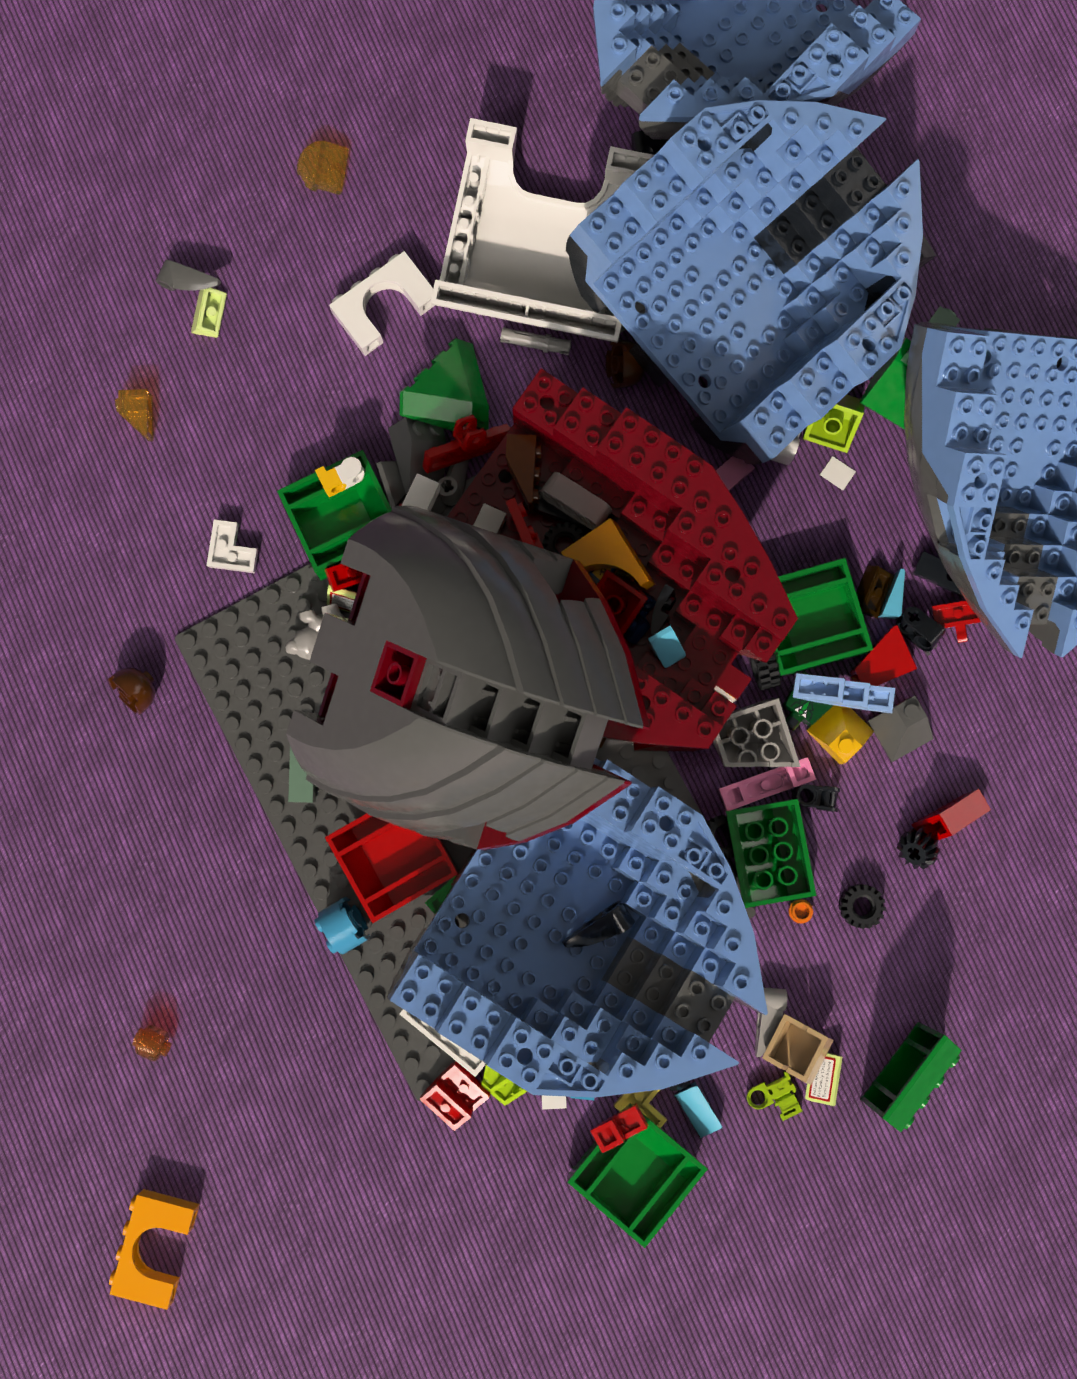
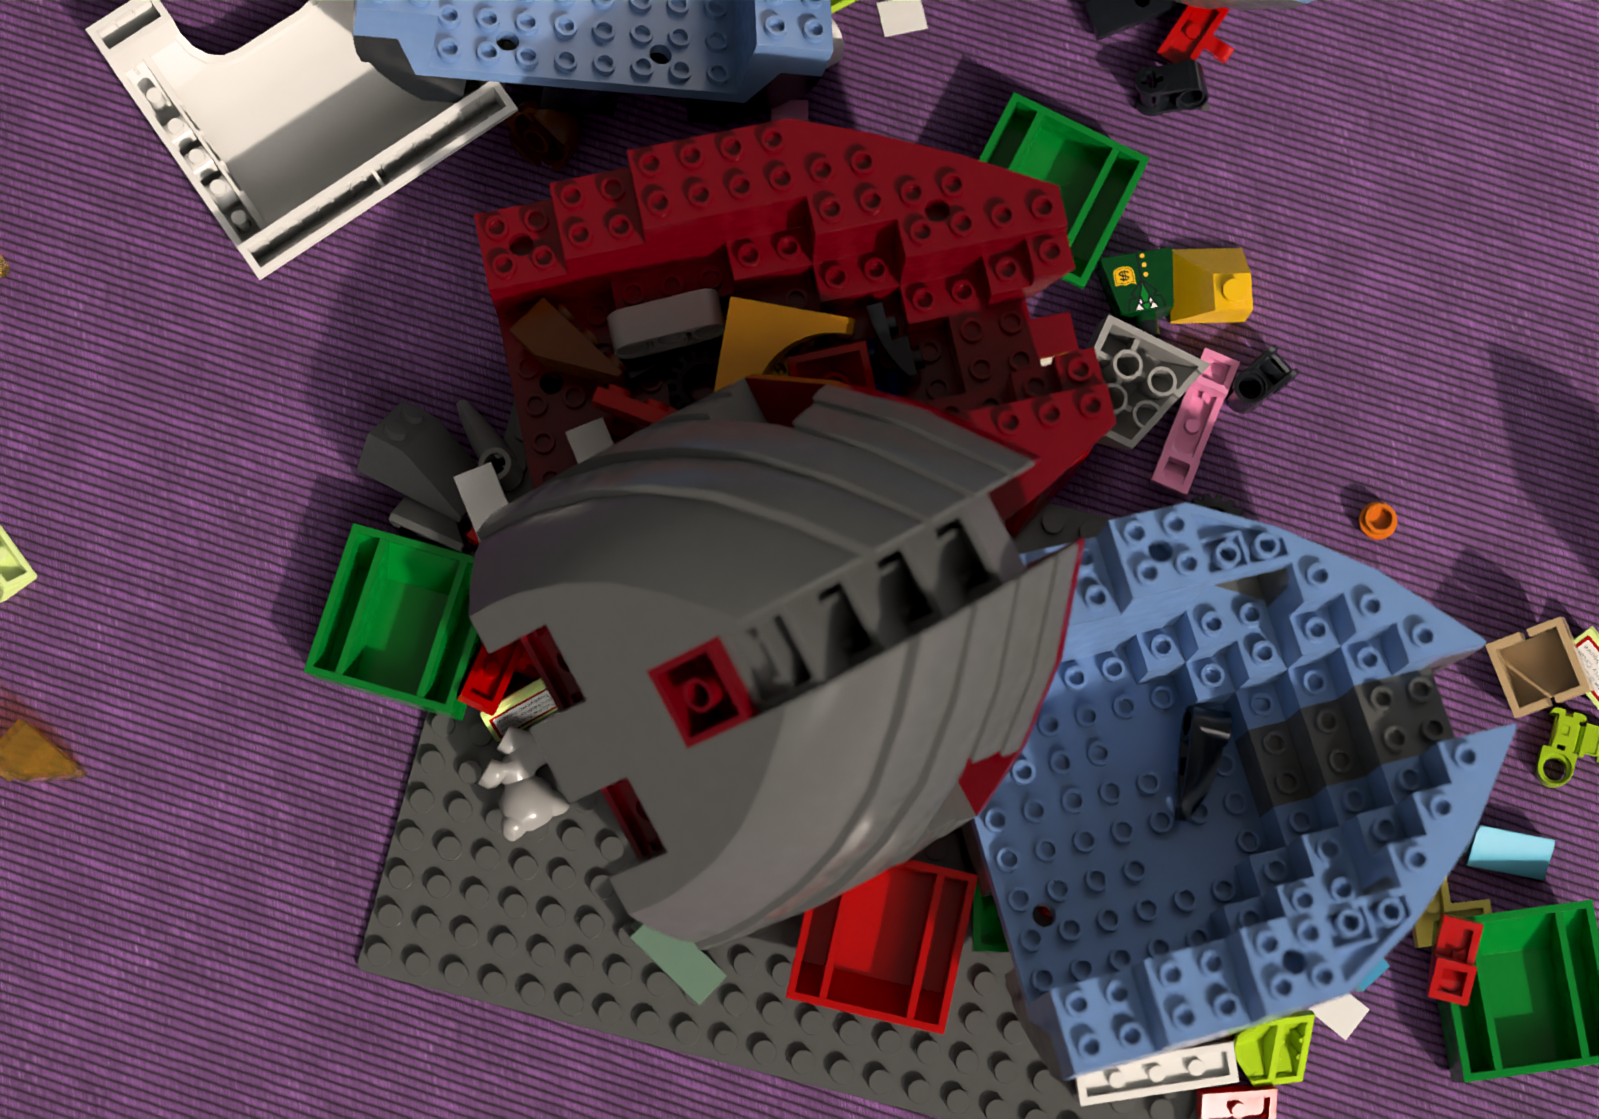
camera: 55 degrees left, 5 degrees down
(134, 688) = (377, 1074): reddish brown cylinder -> none
(224, 552) = (311, 809): white plate -> none
(342, 476) = (364, 576): leg -> none
(342, 926) = (912, 1077): dark azure brick -> none
(398, 275) = (180, 290): white arch -> none
(447, 390) = (384, 358): green slope -> none
(468, 444) = (469, 393): red plate -> none
(536, 341) = (421, 204): light grey pin -> none
(667, 647) = (944, 371): medium azure slope -> none
(765, 674) = (1061, 298): black tyre -> none
(767, 1024) = (1480, 684): light grey piece -> none
(771, 853) = (1282, 479): green slope -> none
(844, 693) = (1170, 236): light blue slope -> none
(873, 590) = (1076, 97): dark brown slope -> none
(875, 912) = (1446, 426): black tyre -> none
(886, 661) = (1175, 163): red slope -> none
(893, 603) = (1110, 87): medium azure slope -> none
(903, 729) = (1266, 213): dark grey slope -> none
(918, 848) = (1425, 319): black gear -> none
(954, 815) = (1421, 252): slope -> none

